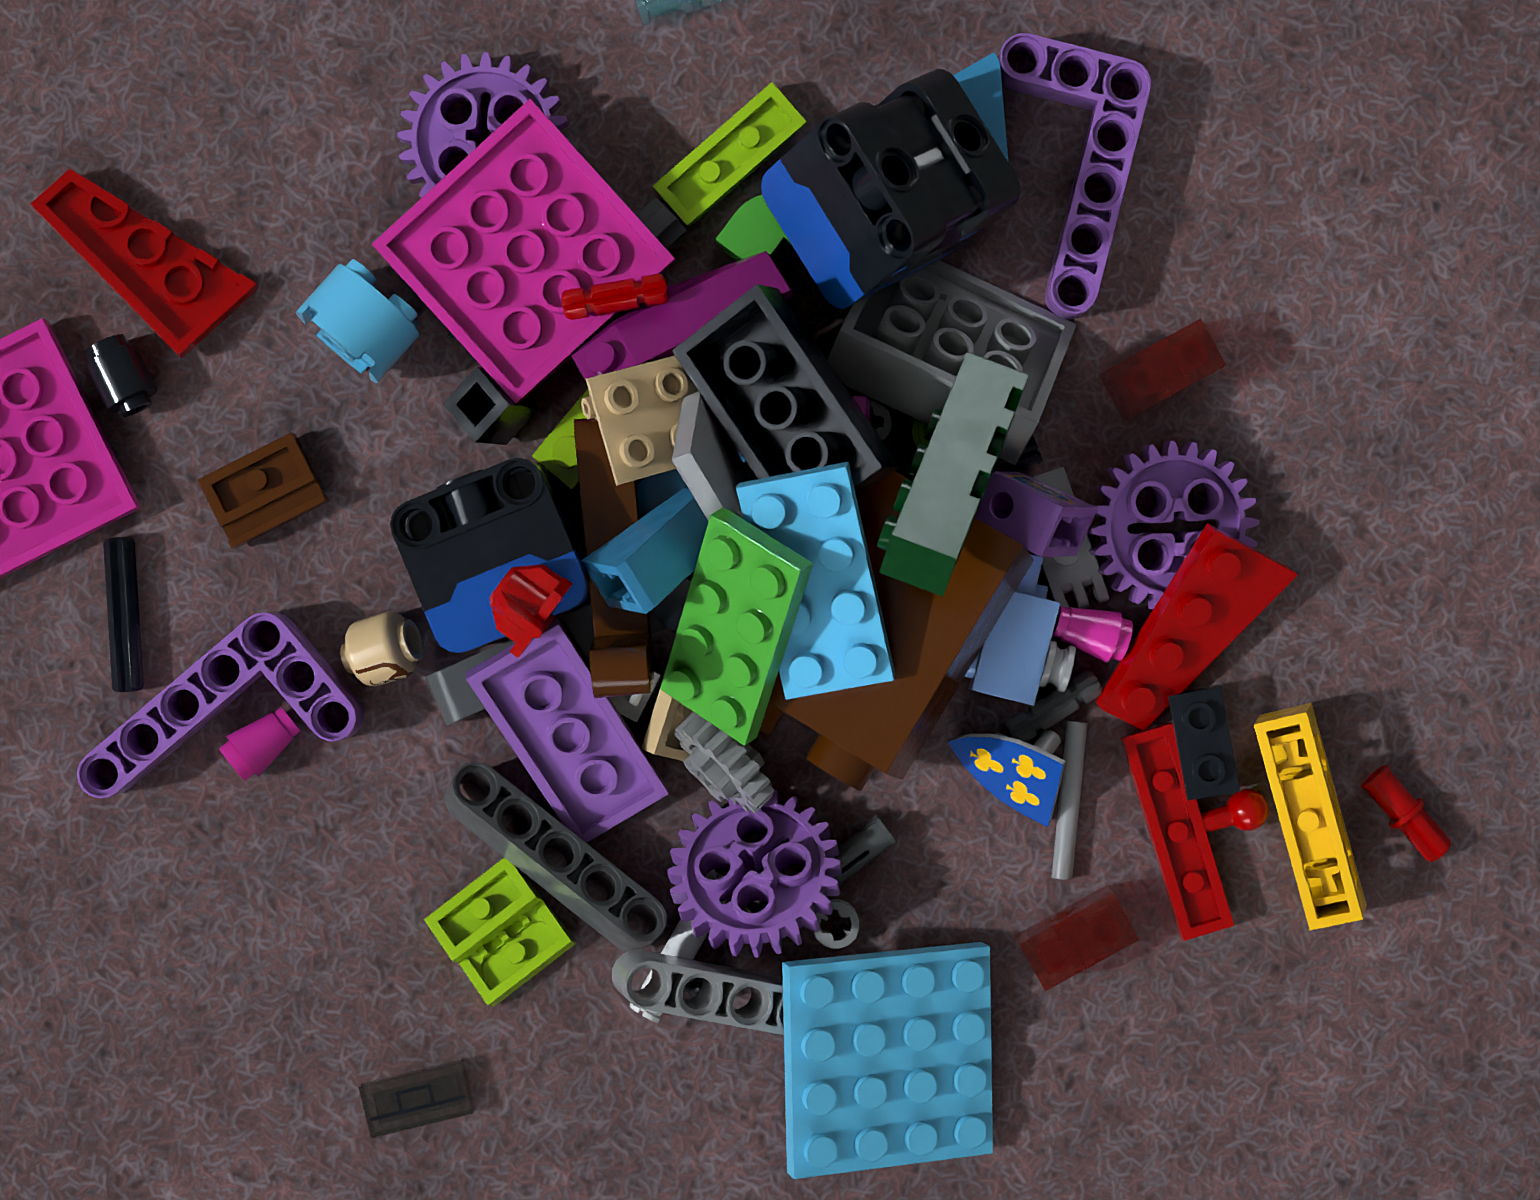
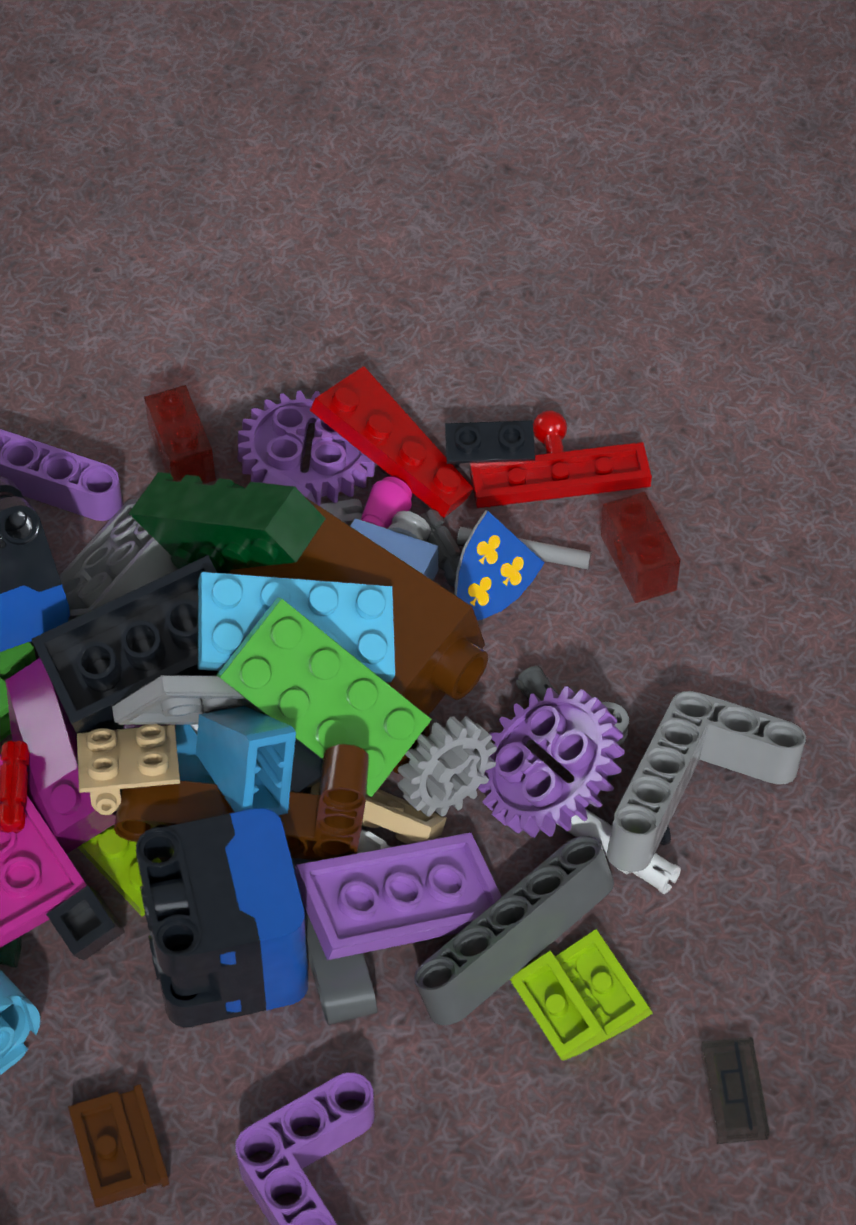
camera: 75 degrees left, 35 degrees down
(259, 743) = (367, 1185): dark pink cone -> none
(382, 648) = (293, 1054): tan head -> none
(526, 602) = (269, 840): red piece -> none
(887, 1059) = (729, 683): medium azure plate -> none
(1310, 816) = (559, 379): yellow brick -> none
(1406, 813) = (567, 331): red axle -> none

